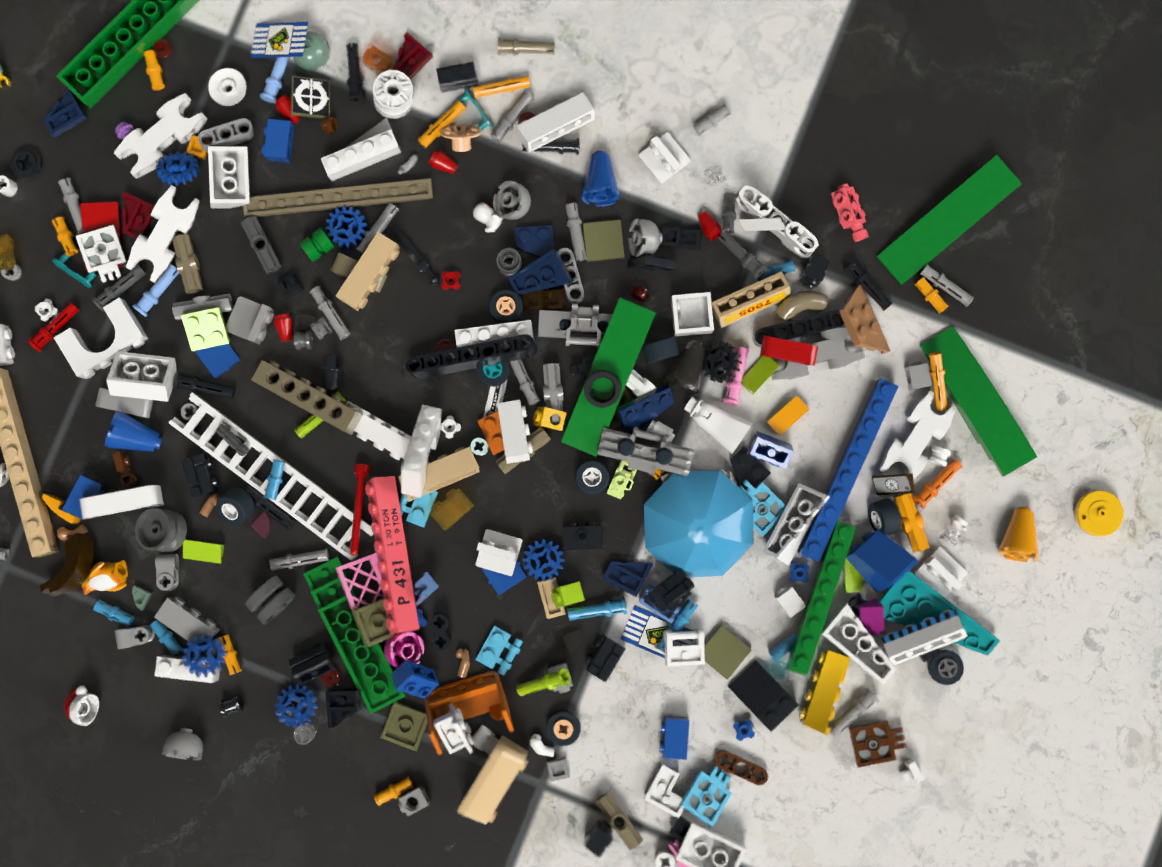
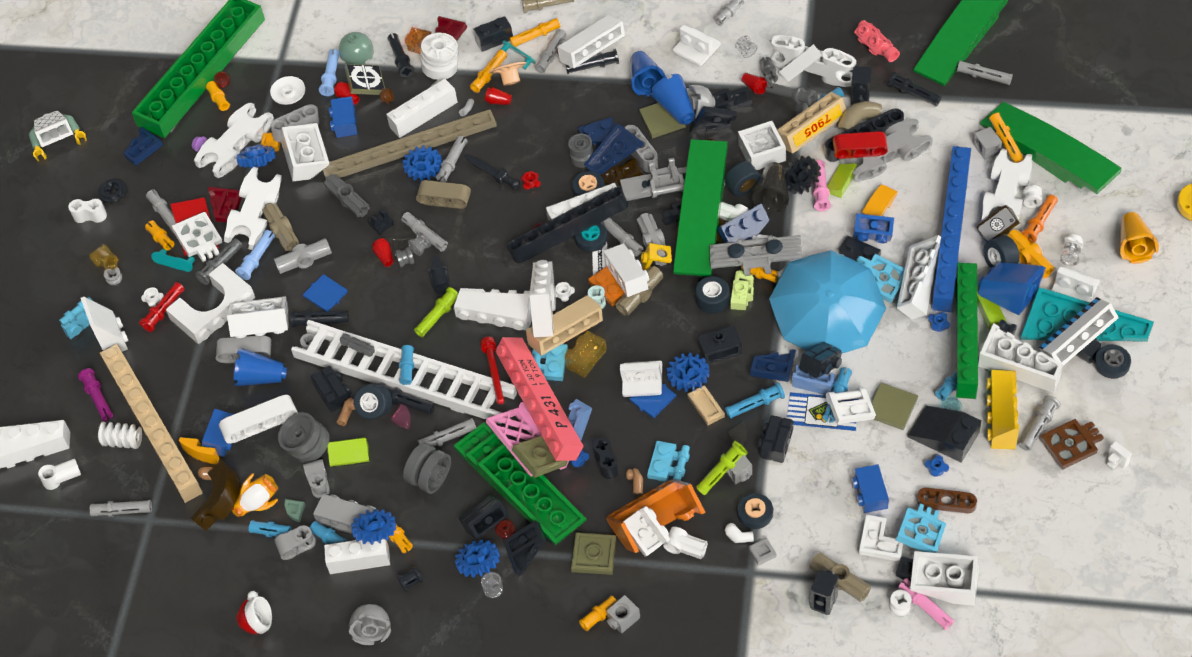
camera: 15 degrees left, 30 degrees down
(123, 465) = (251, 395): reddish brown plate -> none
(205, 328) = (309, 268): plate -> none
(249, 320) = (350, 255): light grey bracket -> none
(266, 375) = (420, 293): dark tan brick -> none
(279, 40) = (327, 45): sticker -> none
(317, 244) = (400, 179): green wheel -> none
(368, 271) = (452, 183): tan brick -> none
(403, 647) = (572, 477): dark pink cylinder -> none
(414, 679) = (591, 497): blue brick -> none
(486, 215) = (551, 123): white animal -> none
(493, 781) = (695, 565): tan windscreen -> none
(512, 200) = (569, 104): light grey cylinder -> none
(567, 594) = (720, 392): lime brick -> none
(574, 224) = (631, 111): light grey pin -> none
(588, 392) = (698, 196): black tyre -> none
(620, 232) = (674, 98): none -> blue cone
(720, 424) = (822, 224): white piece -> none
(789, 601) = (939, 345): white brick -> none
(862, 322) = (920, 116): medium nougat wing -> none
(872, 616) = (1023, 329): magenta slope -> none
(931, 295) = (974, 83): light orange pin -> none

